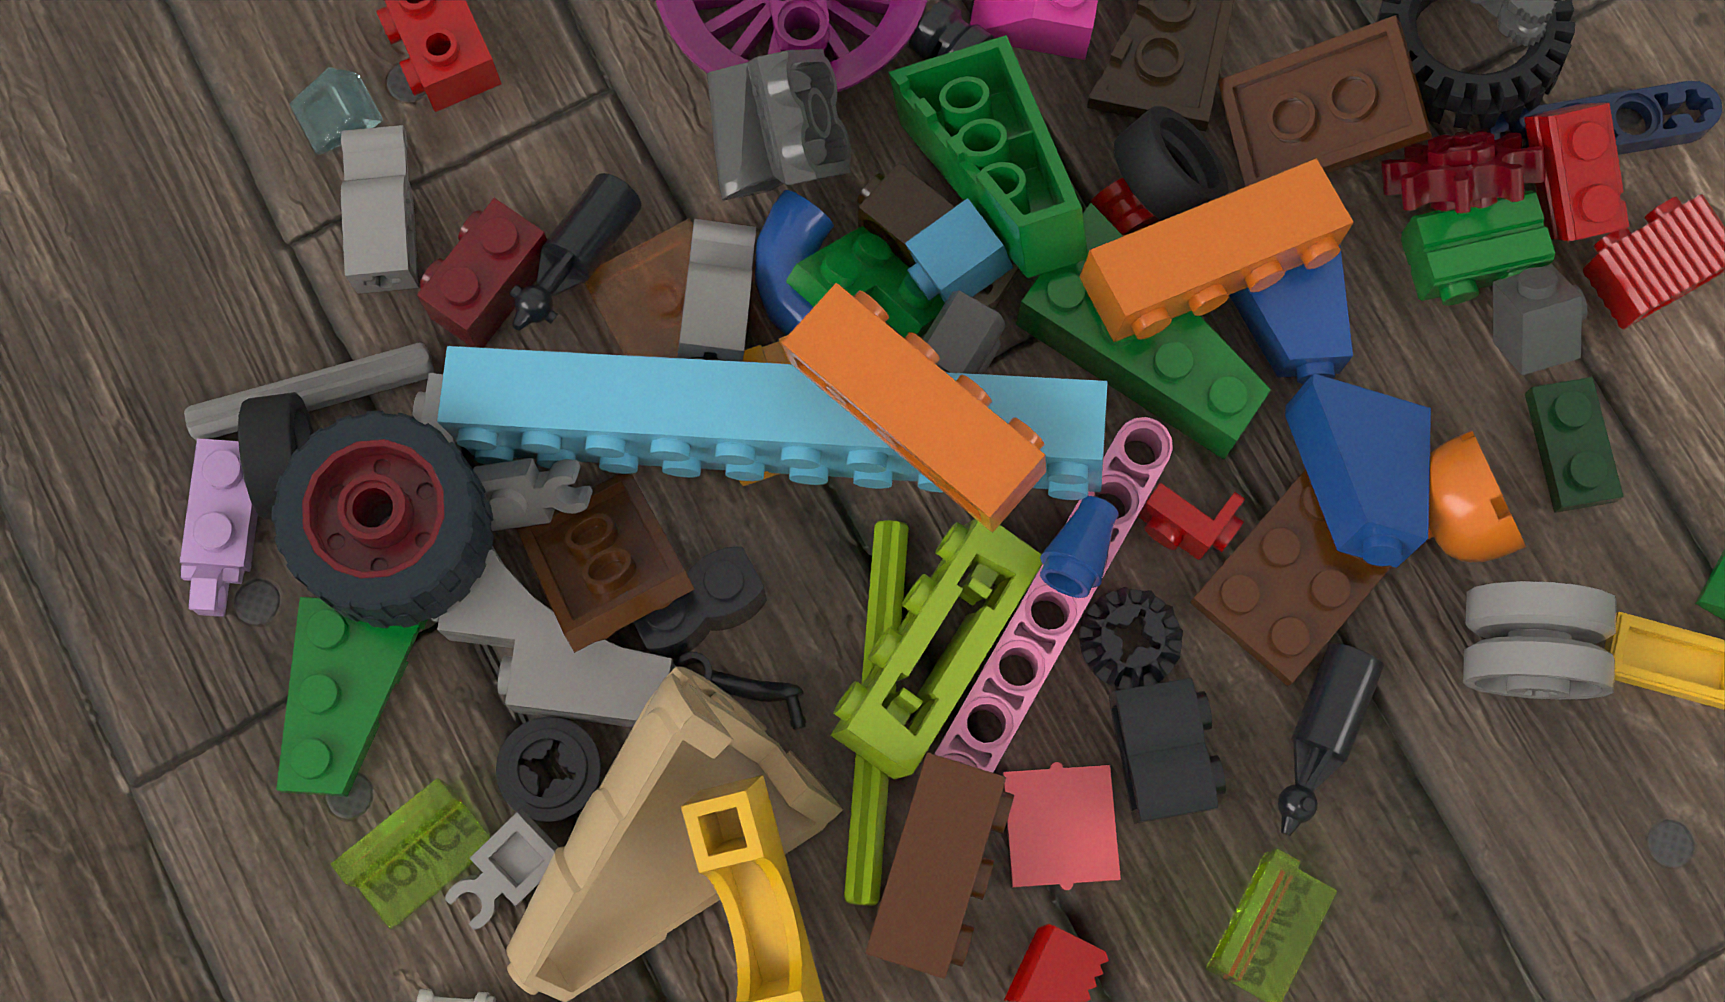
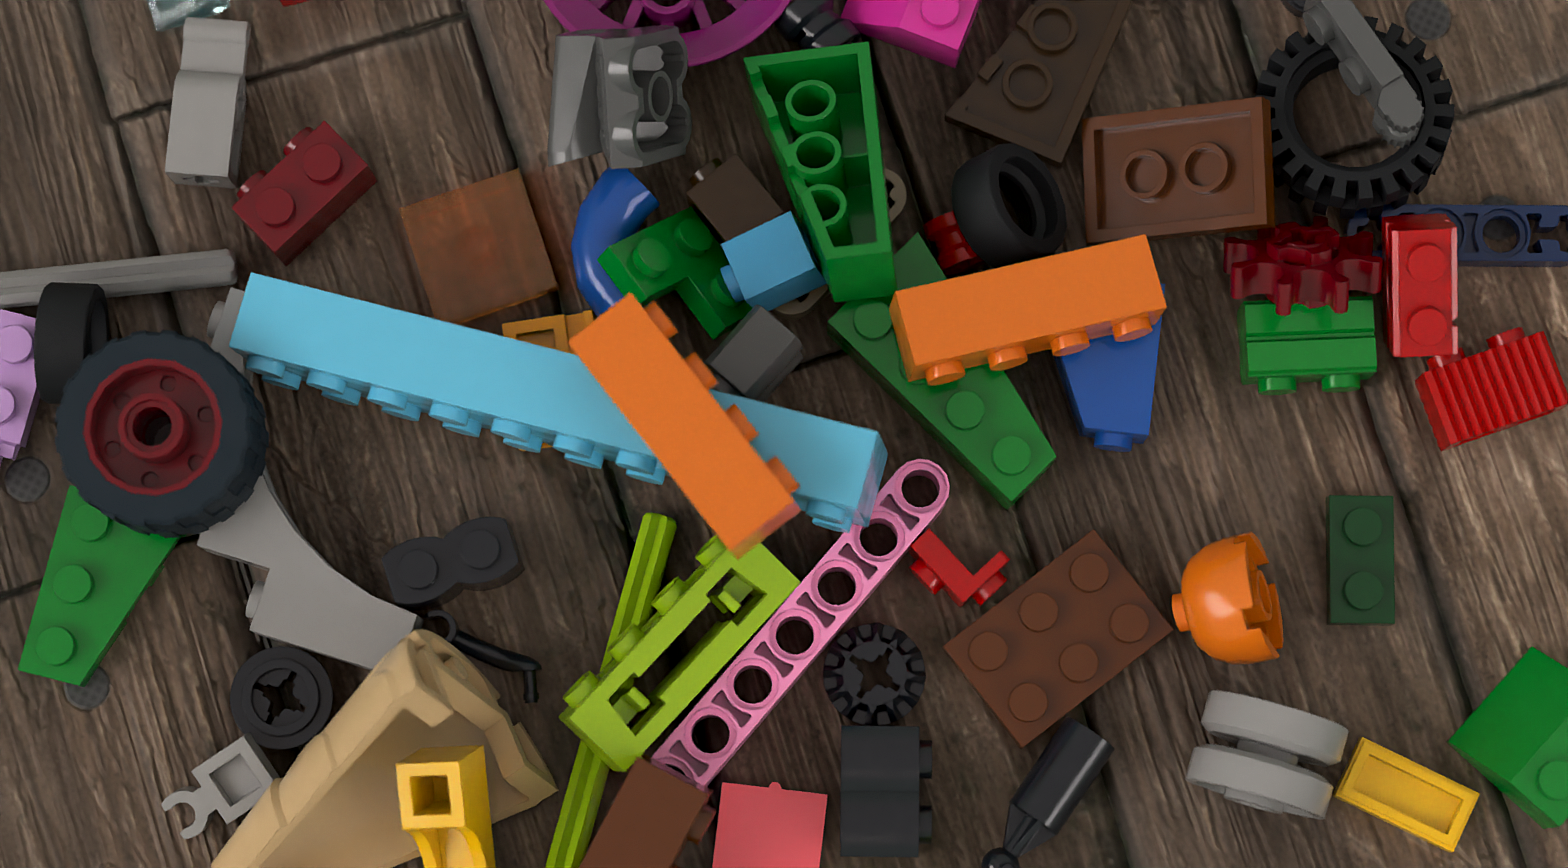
camera: 15 degrees right, 5 degrees up
(413, 853) = (139, 755): clear neon green panel -> none
(529, 497) = (305, 427): light grey plate -> none
(577, 246) = (399, 181): black wheel -> none
(605, 563) = (367, 506): reddish brown plate -> none
(717, 291) = (527, 259): light grey piece -> none
(1079, 551) = (832, 582): blue cone -> none
(1365, 466) = (1136, 549): blue slope -> none
(1538, 319) = (1347, 429): dark grey brick -> none

